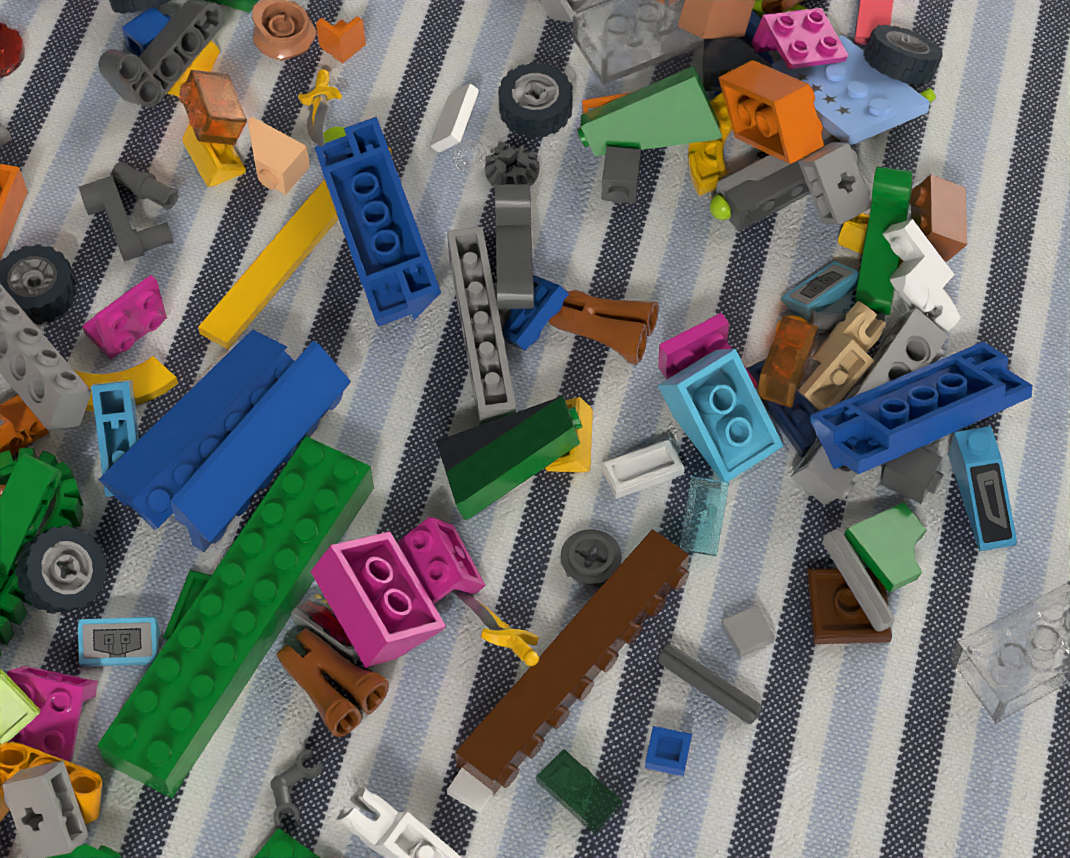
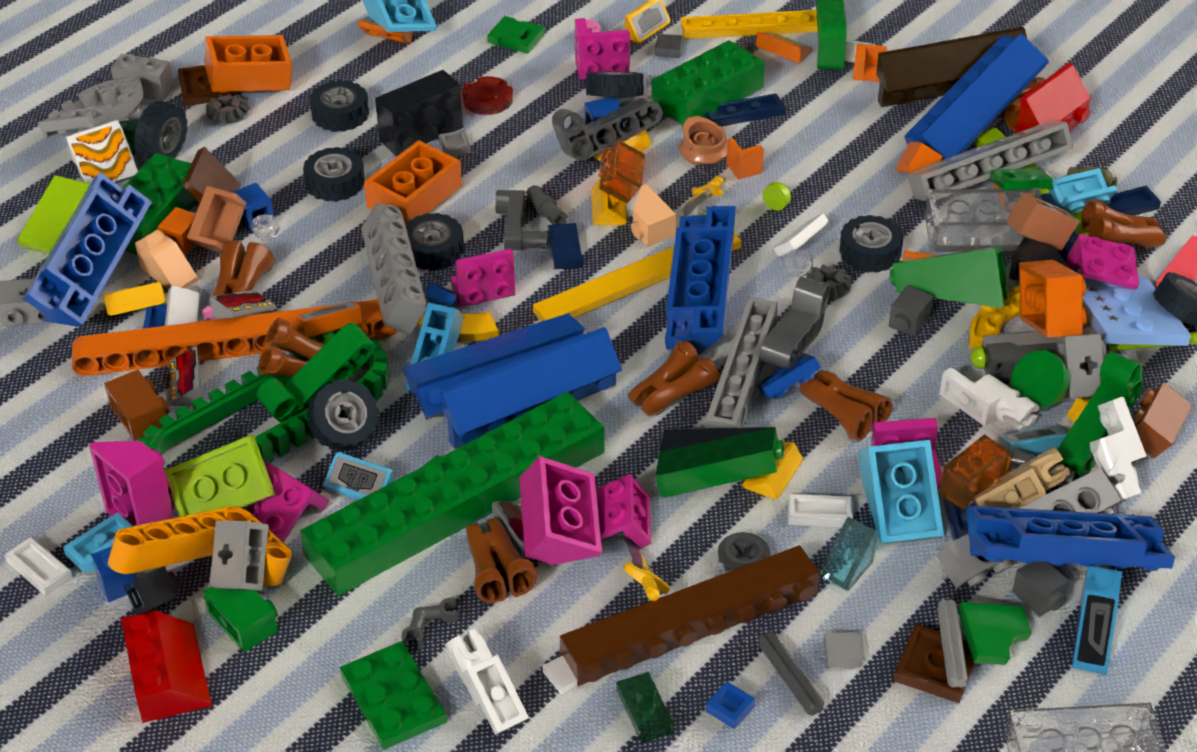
camera: 25 degrees right, 15 degrees down
(85, 357) = (439, 294): none -> blue plate
(192, 230) = (565, 246): none -> dark blue tile
(402, 74) = (776, 196): none -> lime tile
(405, 340) = (674, 379): none -> dark orange piece
(754, 259) = (988, 400): none -> white plate
(799, 216) = (1041, 378): none -> green tile

